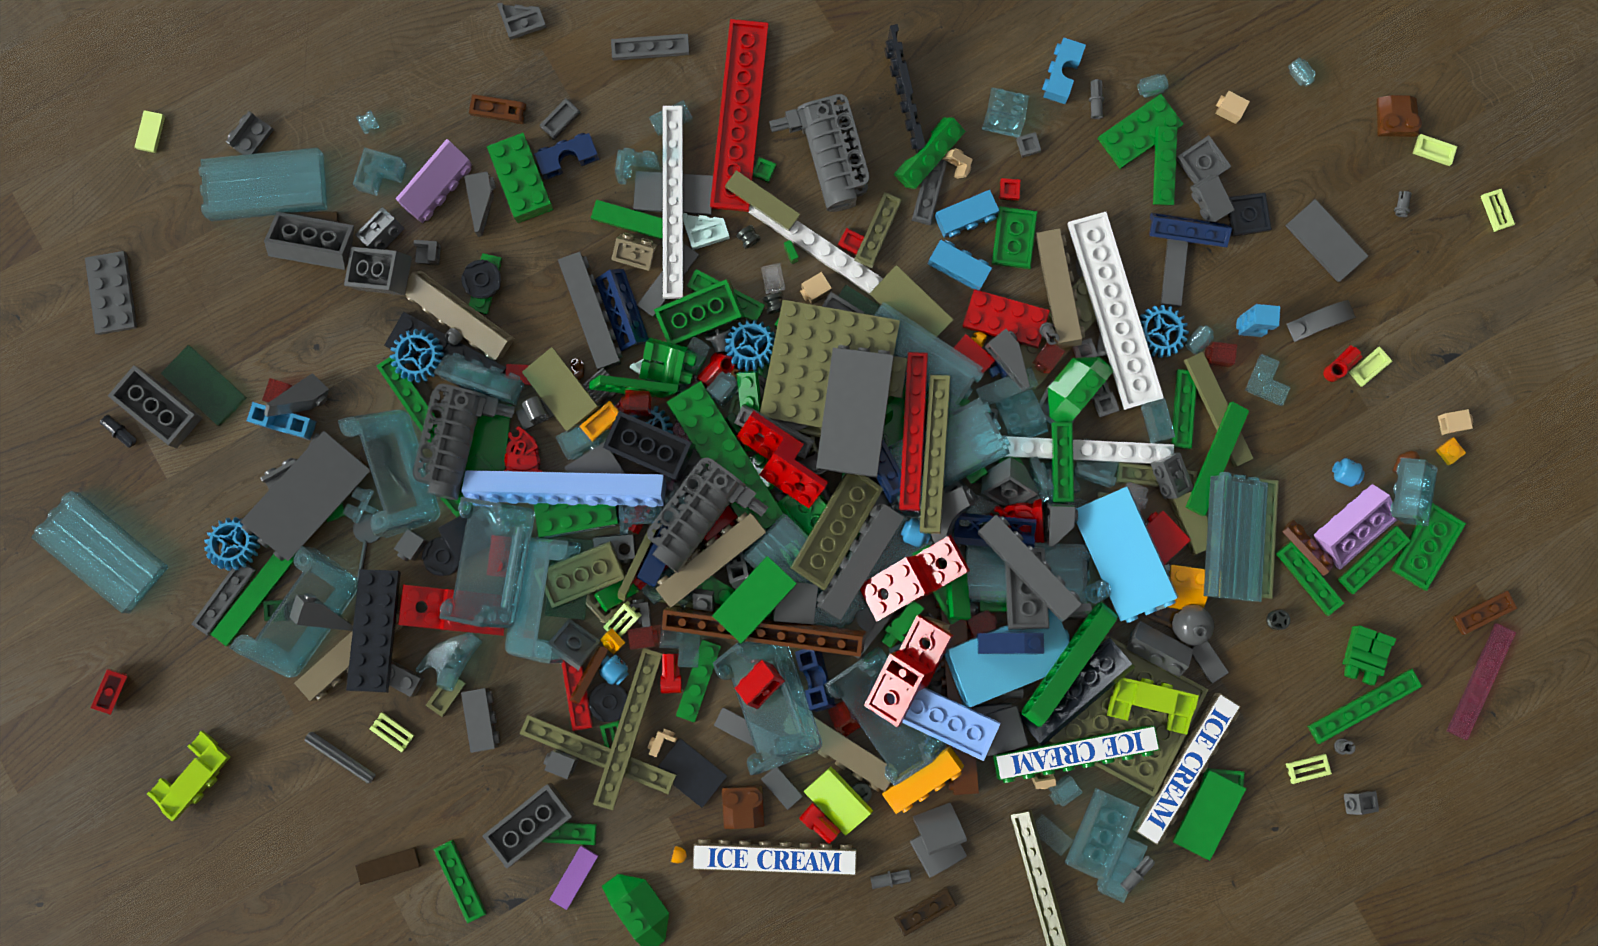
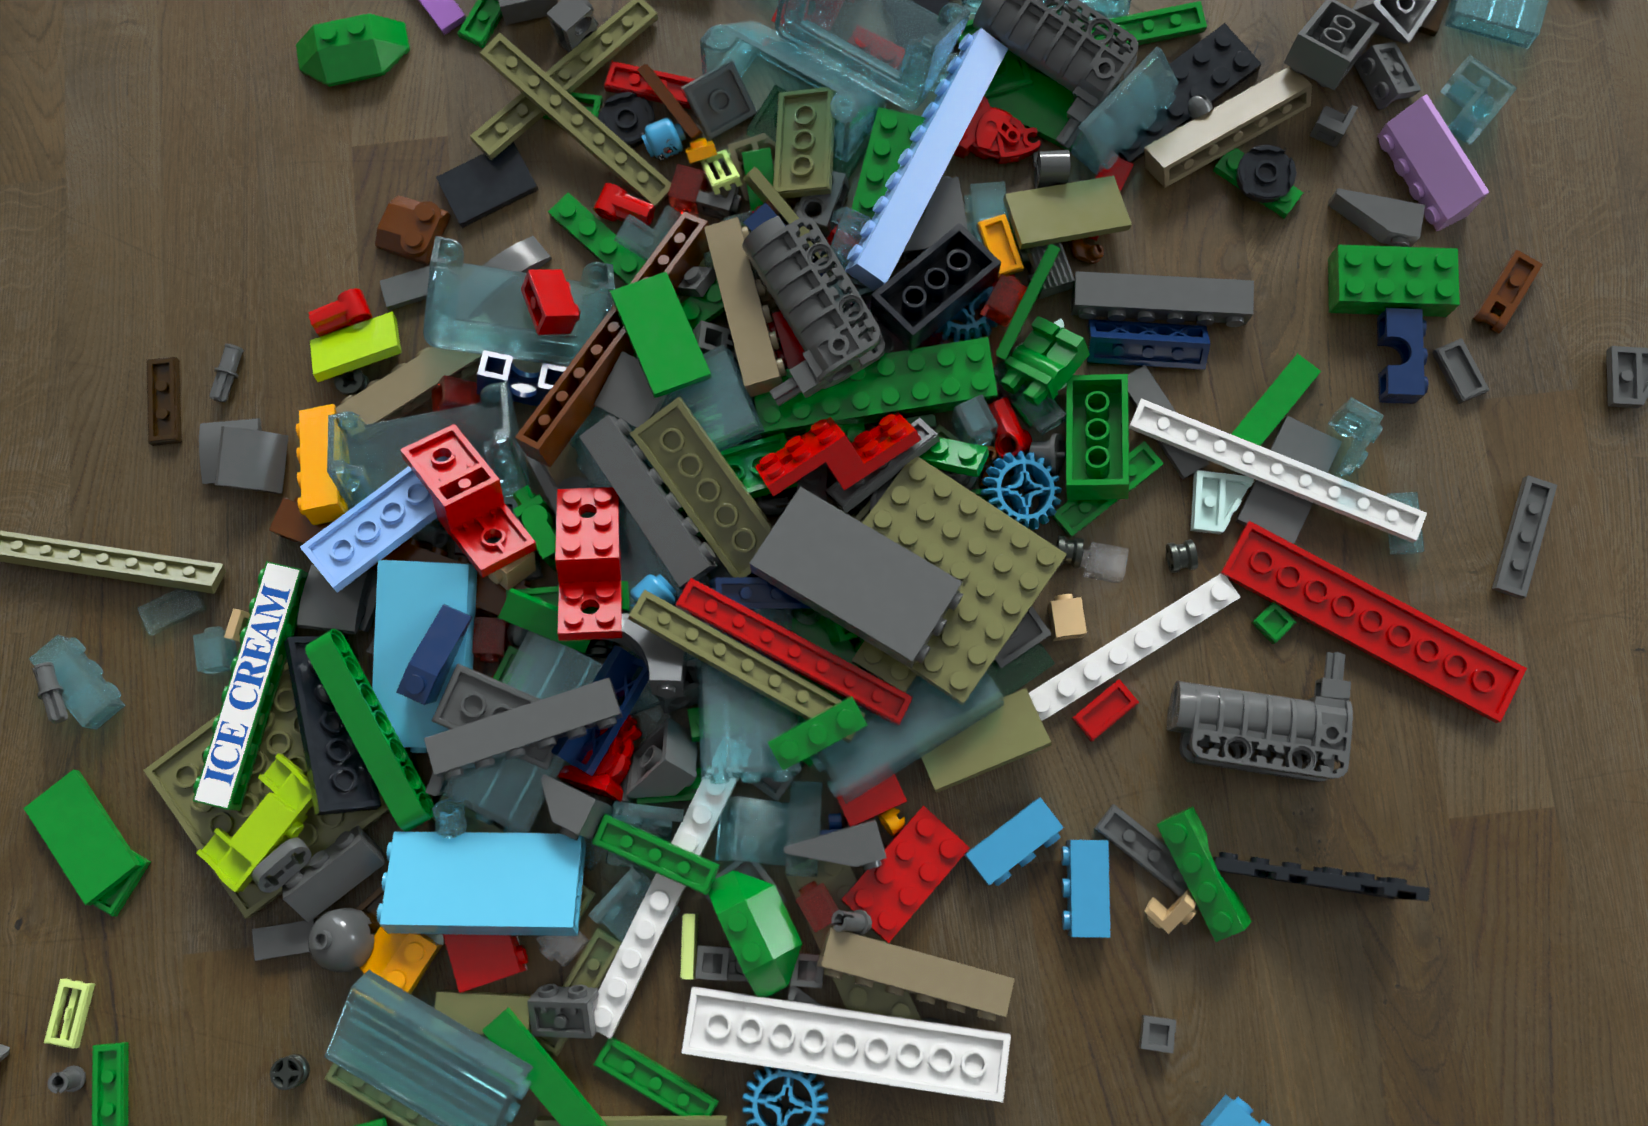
camera: 125 degrees right, 5 degrees down
(367, 121) = (1552, 115): clear light blue wheel -> none
(401, 359) = (1206, 42): dark azure gear -> none
(634, 251) = (1224, 391): dark tan bracket -> none
(656, 743) = (544, 154): tan bracket -> none
(679, 855) = (392, 125): light orange hinge -> none
(762, 200) = (1227, 595): olive tile -> none
(774, 858) = (326, 239): brick -> none
(791, 252) = (1134, 606): green tile -> none
(878, 230) = (1116, 746): olive tile -> none
(955, 395) = (817, 733): none -> green plate
(1005, 112) = (1223, 1022): clear light blue bracket -> none
(1009, 189) = (1099, 971): red plate -> none
(1014, 237) = (1023, 945): green tile -> none
(1101, 835) = (130, 671): clear light blue slope -> none
(1102, 423) = (689, 945): none -> yellowish green tile
(1158, 421) = (652, 1029): clear light blue brick -> none
(1170, 677) = (281, 865): none -> dark grey beam
(1186, 768) = (158, 836): brick -> none

